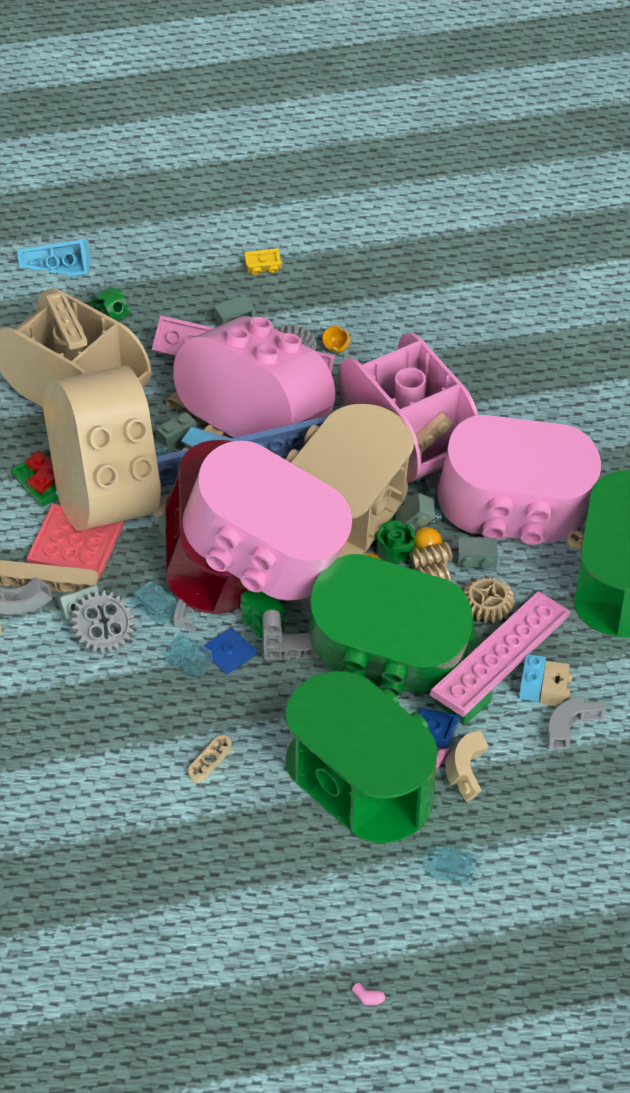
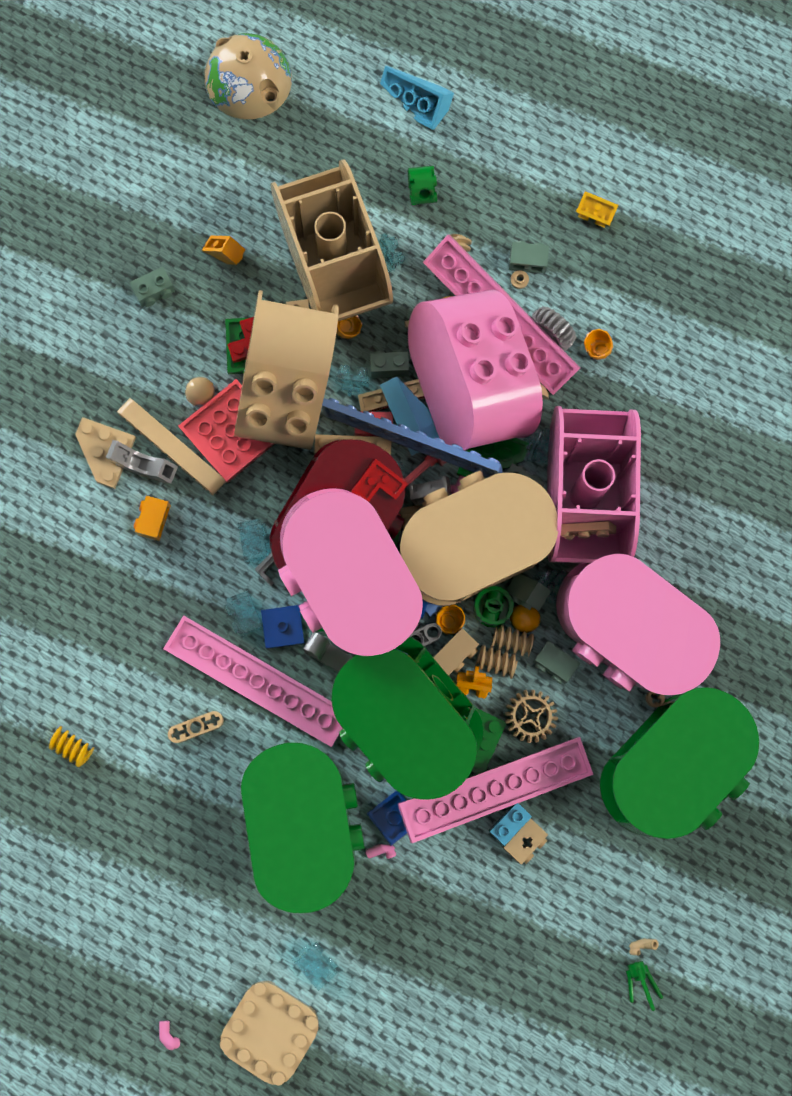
camera: 30 degrees right, 30 degrees up
(25, 529) = (199, 391): none -> tan hair
(54, 632) = (152, 518): none -> light orange brick
(66, 320) = (330, 218): tan plate -> none
(68, 601) = (189, 503): sand green brick -> none
(85, 625) = (210, 542): light grey gear -> none
(109, 828) = (70, 748): none -> yellow piece
(216, 697) = (254, 680): none -> bright pink plate
(456, 936) = (269, 1032): none -> tan plate
(458, 763) = (388, 869): tan arch -> none
(569, 714) = (503, 881): light grey arch -> none

